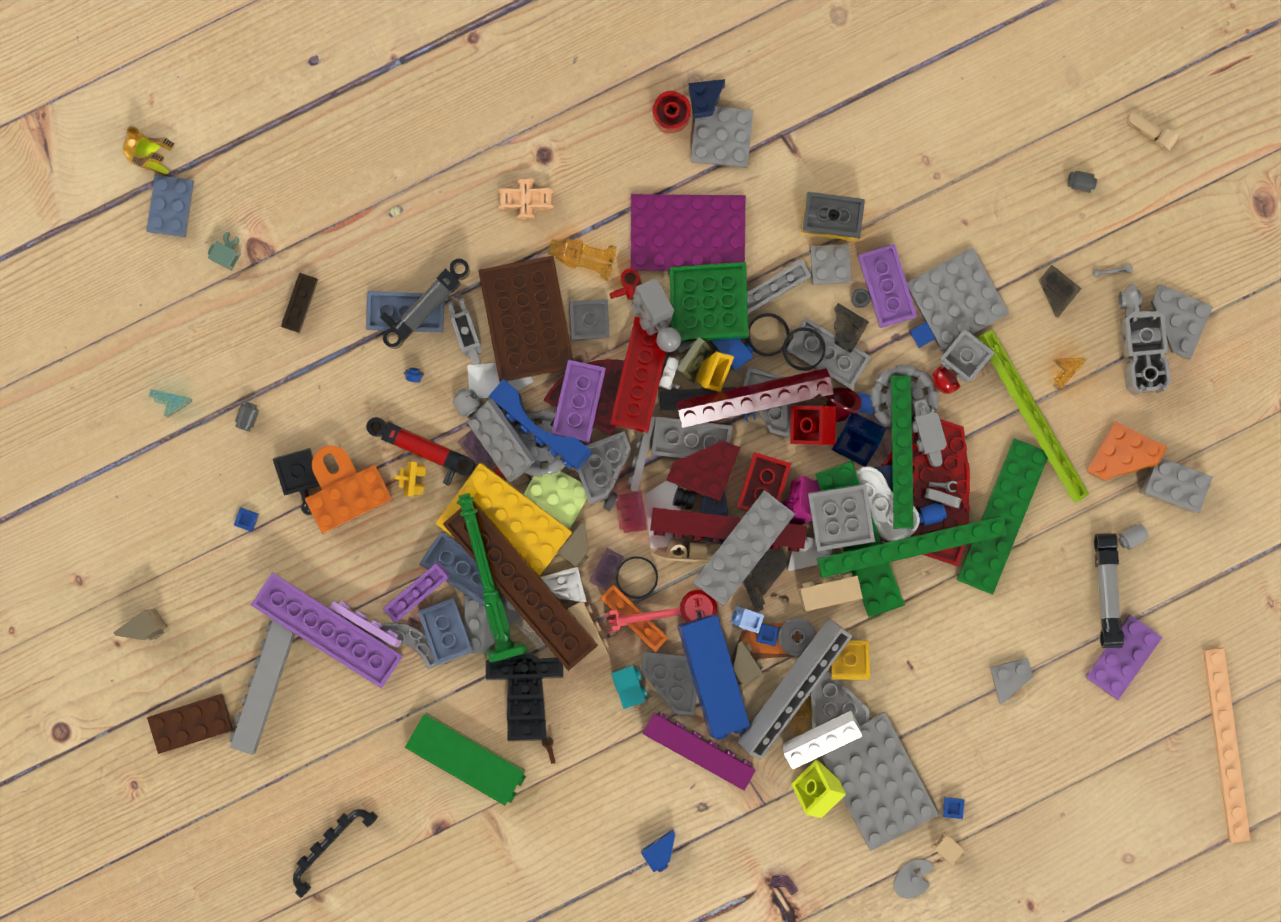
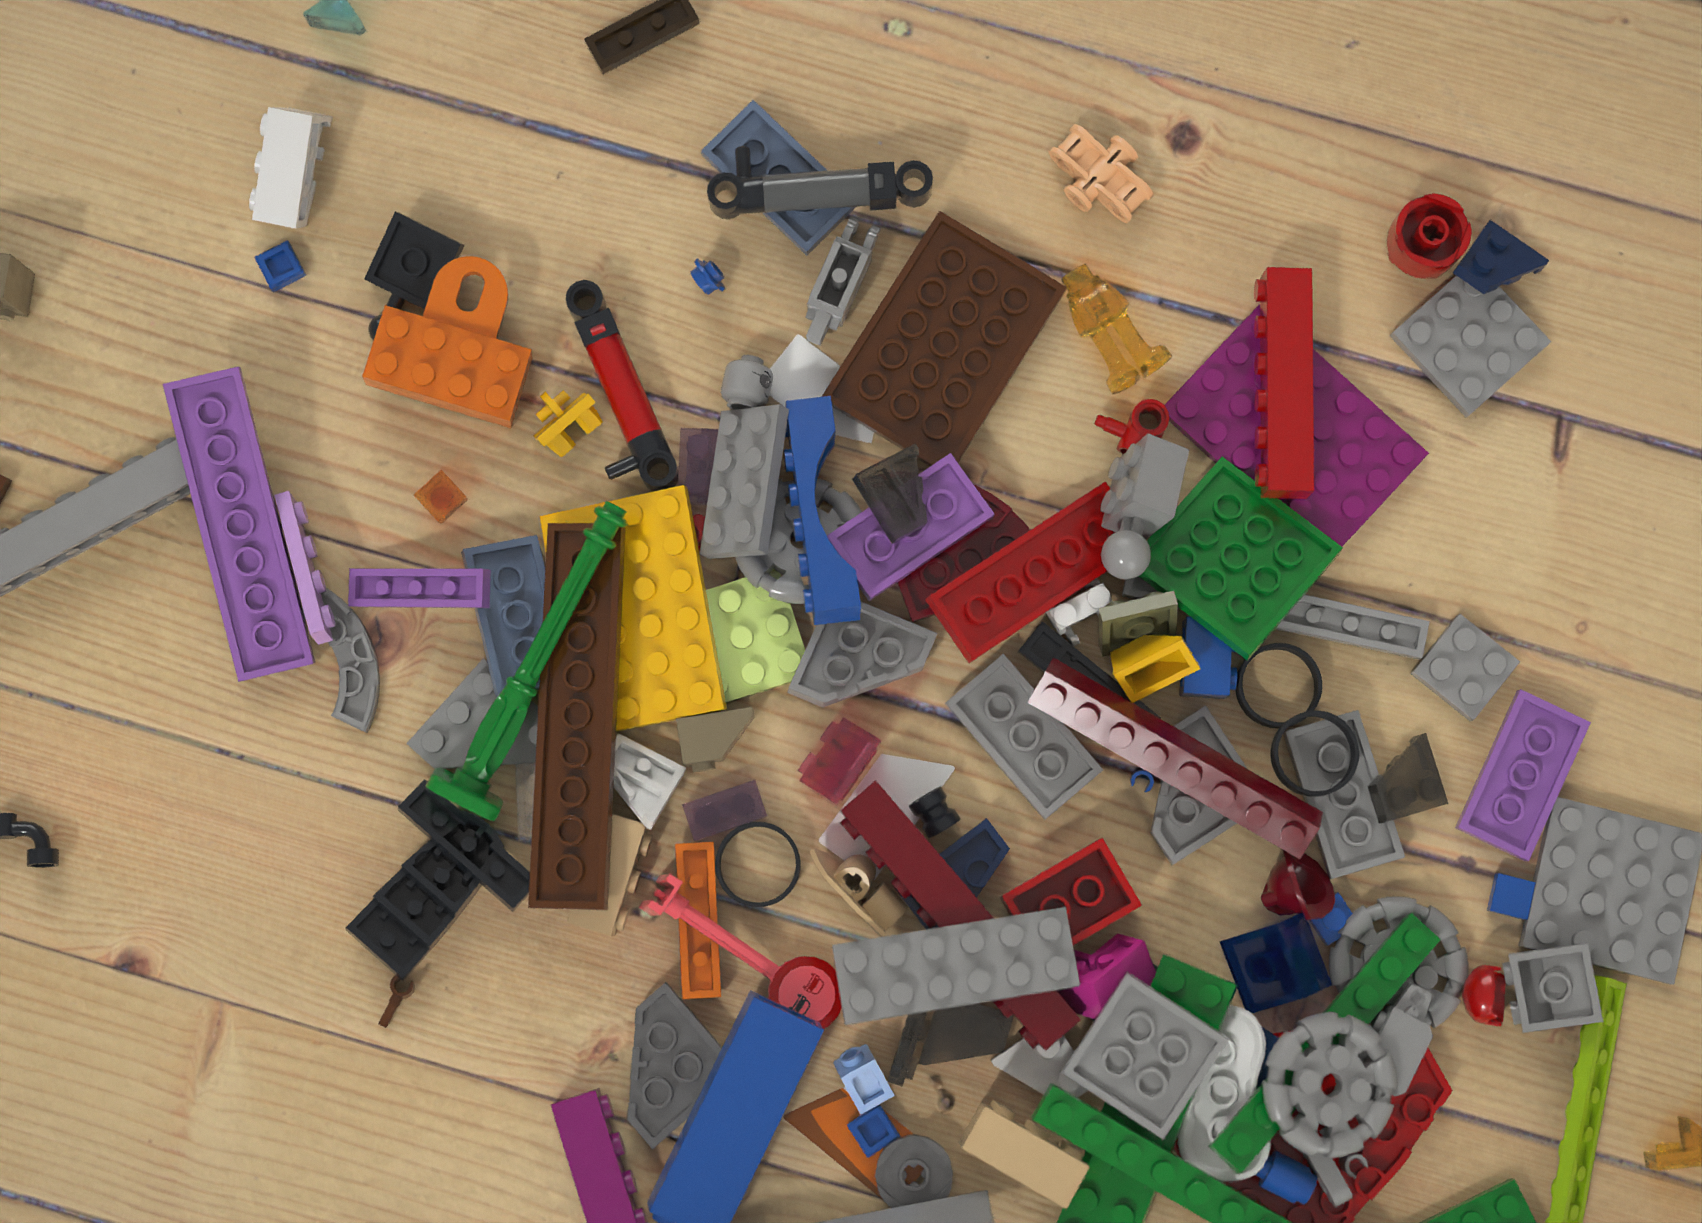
camera: 45 degrees right, 5 degrees down
(213, 479) = (287, 166): none -> white wedge
(246, 416) = (417, 121): dark grey brick -> none
(391, 550) = (440, 497): none -> clear orange plate
(445, 631) = (406, 684): sand blue plate -> none
(466, 759) = (261, 899): green brick -> none
(562, 394) = (895, 493): none -> clear smoke wing
(589, 319) = (1034, 426): flat silver plate -> none
(610, 501) = (822, 716): dark grey tile -> none
(628, 686) = (596, 1013): teal brick -> none
(638, 462) = (917, 698): light grey plate -> none
(668, 218) = (1285, 383): none -> red brick
(705, 470) = (1005, 799): dark red plate -> none
(744, 665) = (795, 1144): dark tan slope -> none
(813, 425) = (1226, 878): red brick -> none
(832, 216) = (1534, 598): dark grey piece -> none
(860, 298) = (1465, 757): dark grey tile -> none
(927, 463) = (1351, 1088): none -> light grey plate

